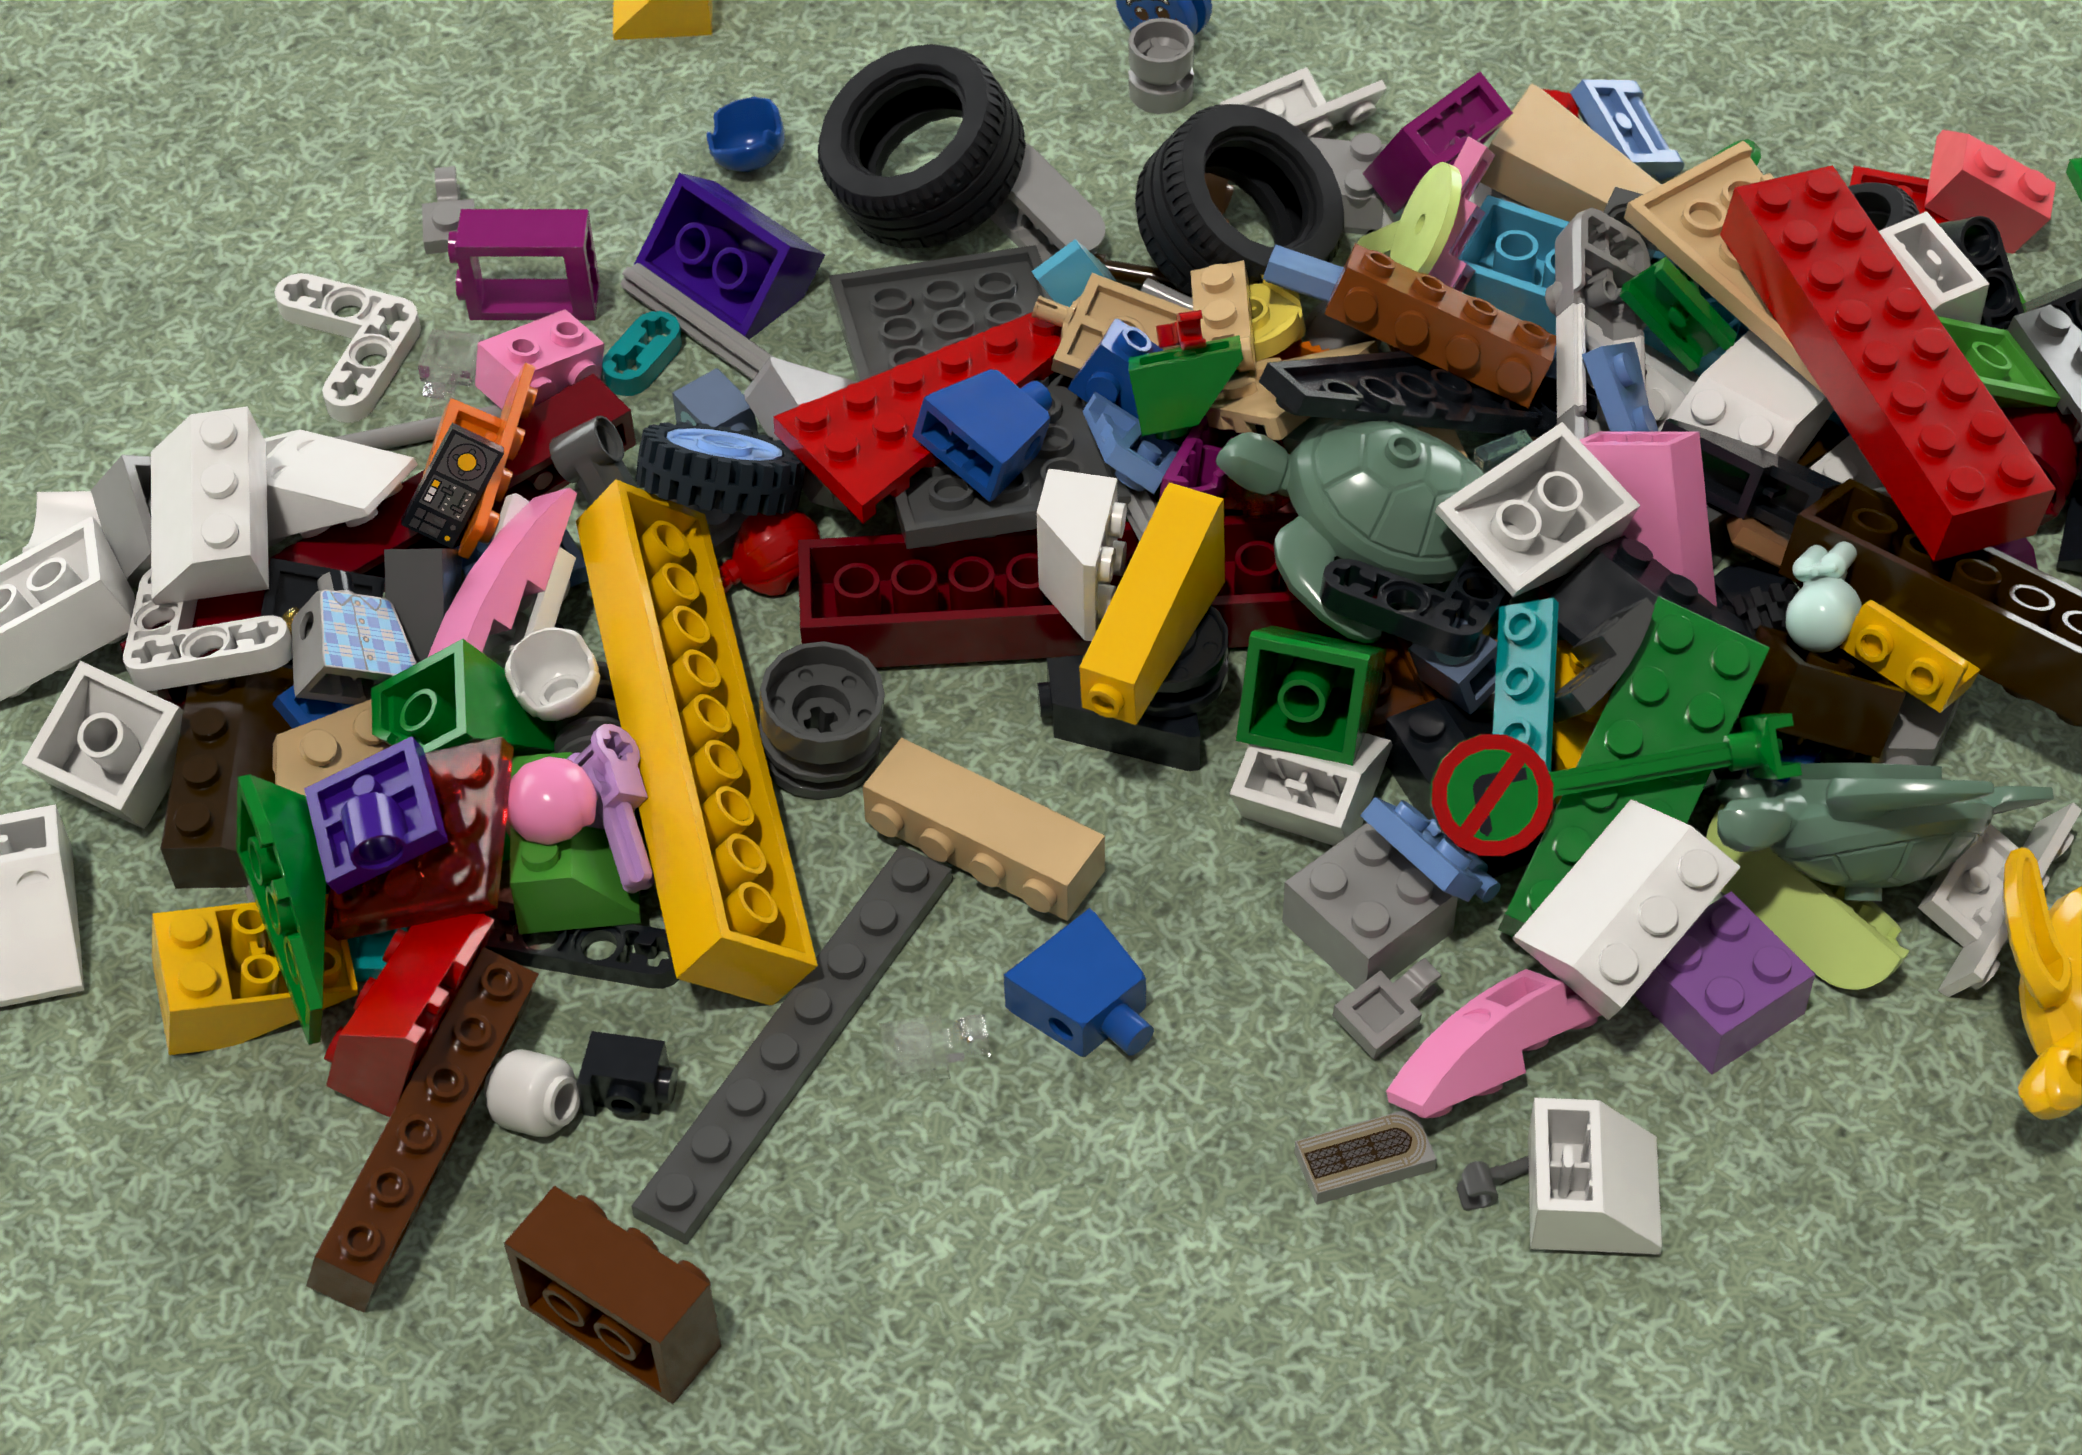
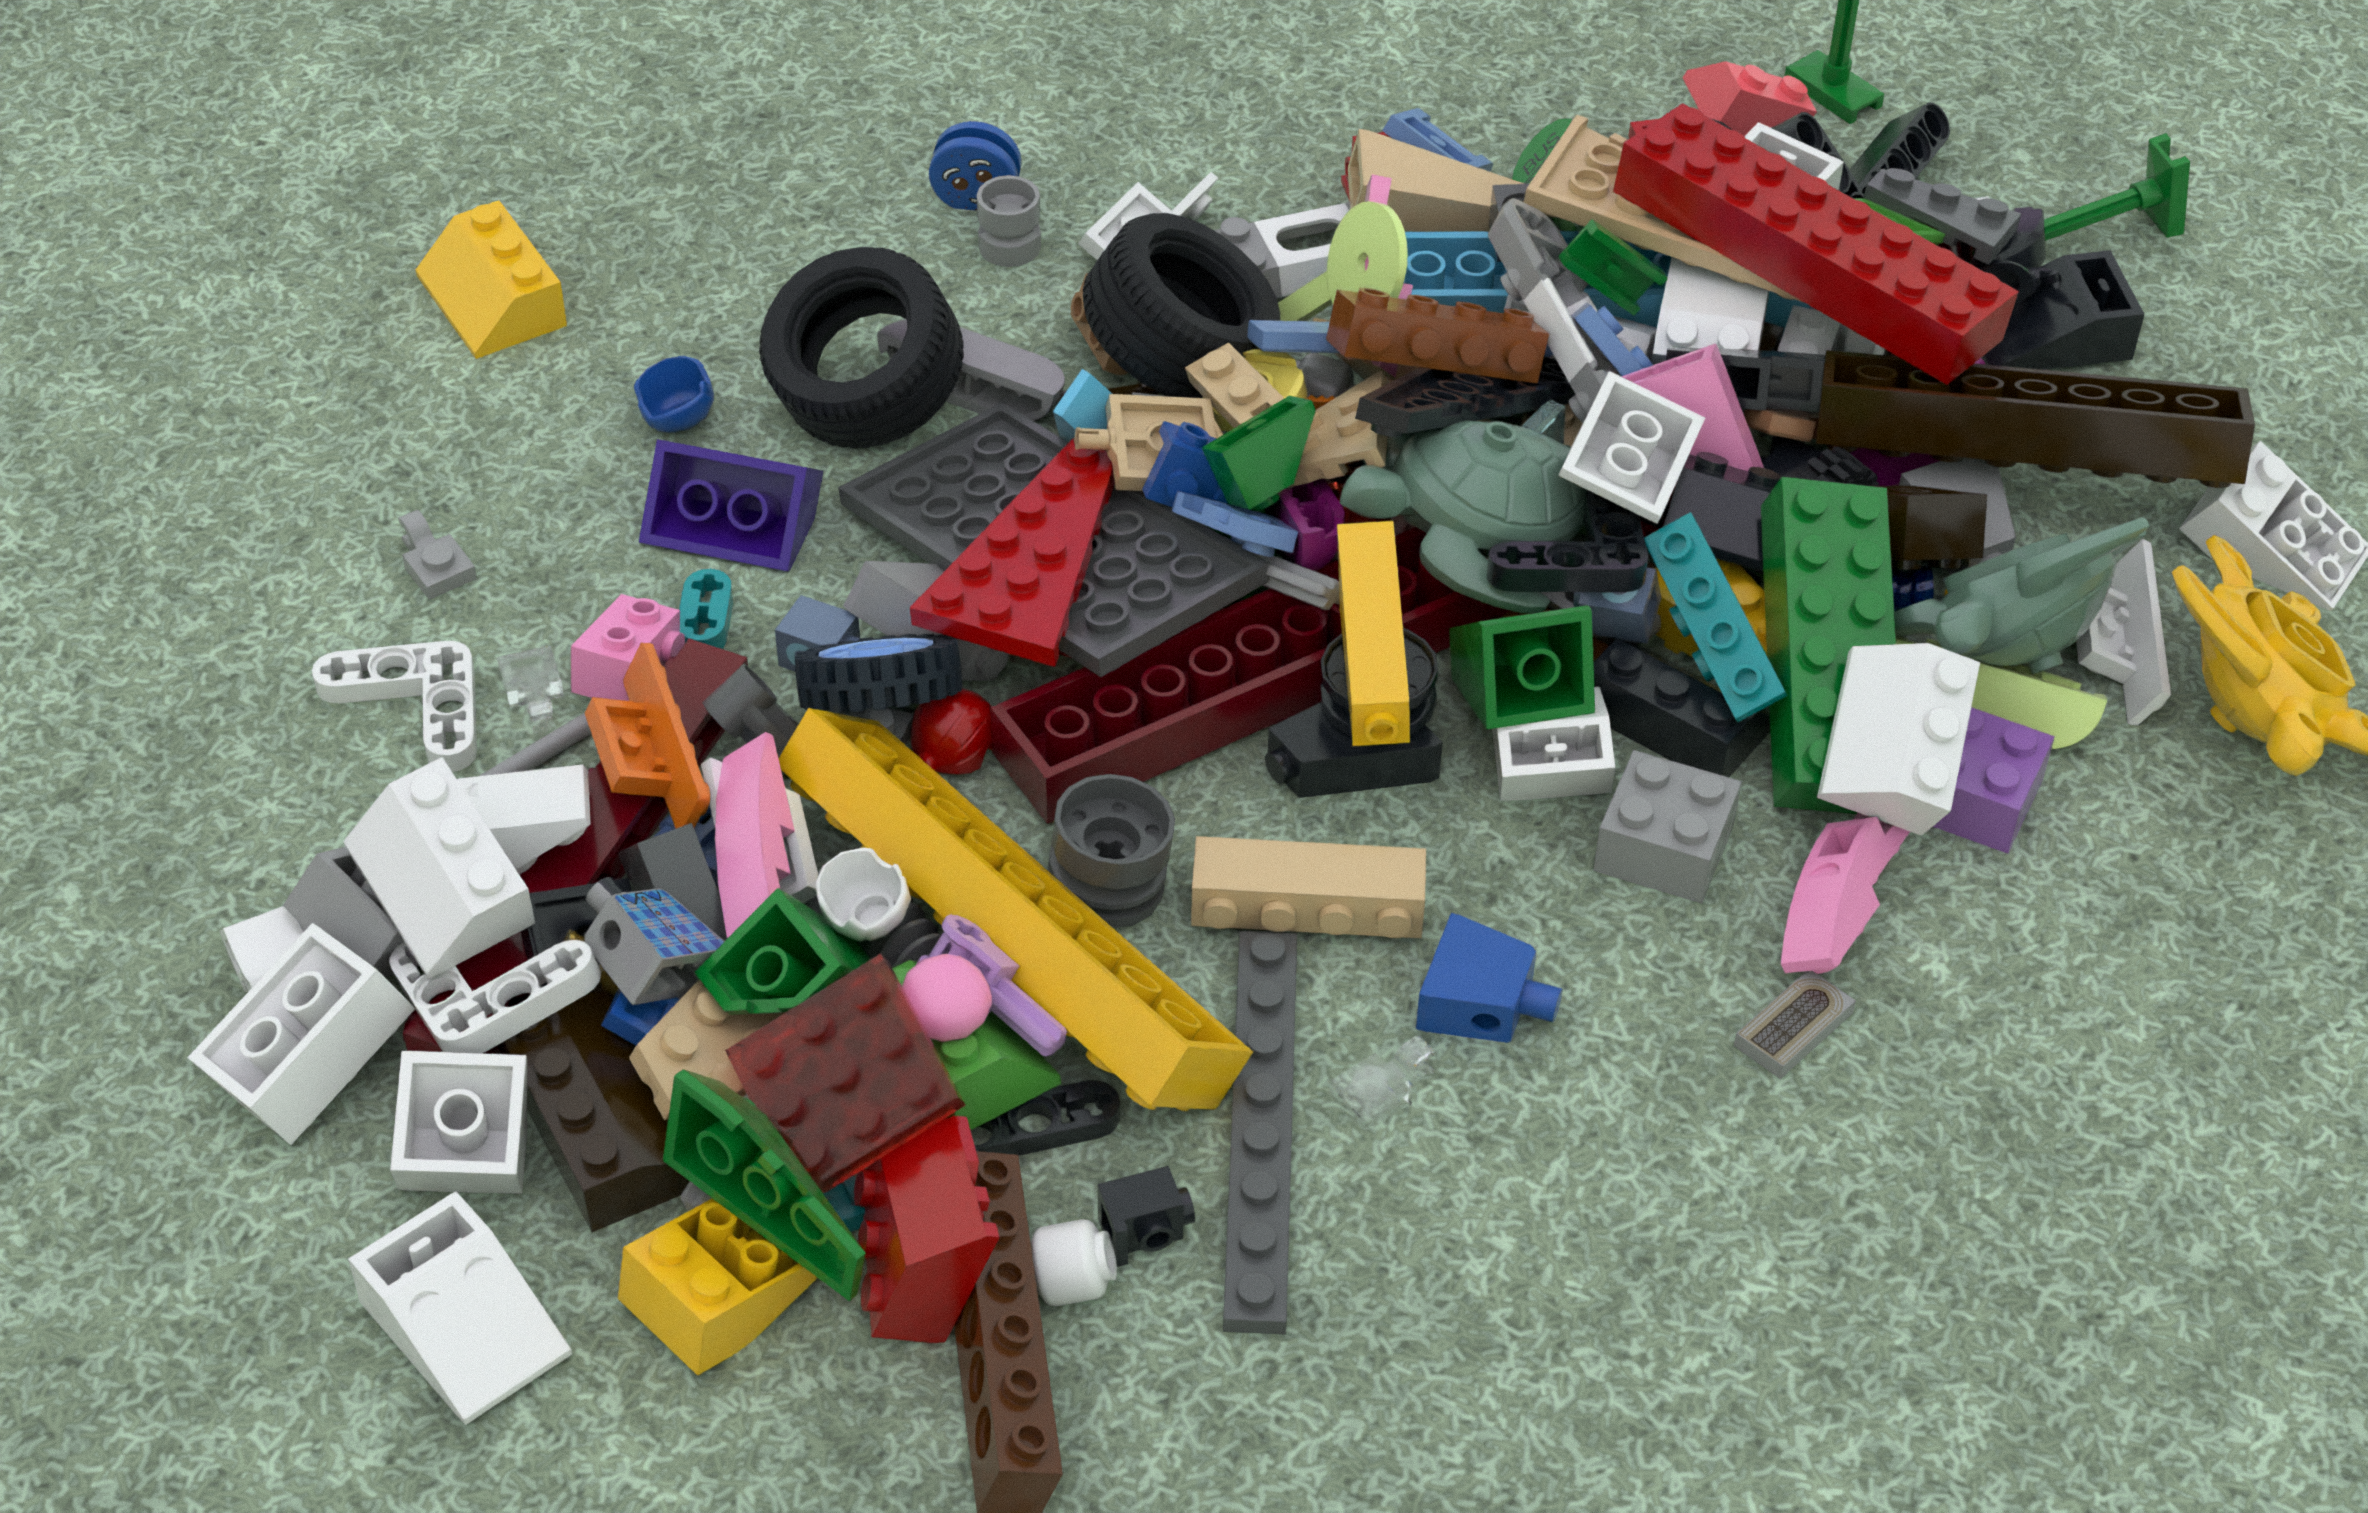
camera: 30 degrees left, 5 degrees down
(375, 815) = (807, 1066): dark purple plate -> none
(452, 485) = (650, 770): tile -> none
(525, 234) = (546, 539): magenta window -> none
(614, 1292) = (1278, 1389): reddish brown brick -> none
(695, 320) = (744, 569): light grey axle -> none
(985, 428) = (1115, 550): blue torso -> none
(1080, 545) = (1265, 618): white slope -> none
(1184, 332) = (1250, 404): red piece -> none
(1385, 1011) = (1731, 901): light grey plate -> none
(1431, 850) = (1728, 757): medium blue plate -> none
(1436, 137) = (1318, 199): magenta window -> none
(1479, 1181) = (1900, 1008): dark grey hand -> none
(1499, 794) = (1749, 680): green piece -> none
(1591, 1179) = (1983, 966): white slope -> none
(1605, 657) = (1759, 543): dark grey slope -> none
(1826, 605) = (1883, 449): light aqua piece -> none
(1909, 657) = (1971, 464): yellow bracket -> none

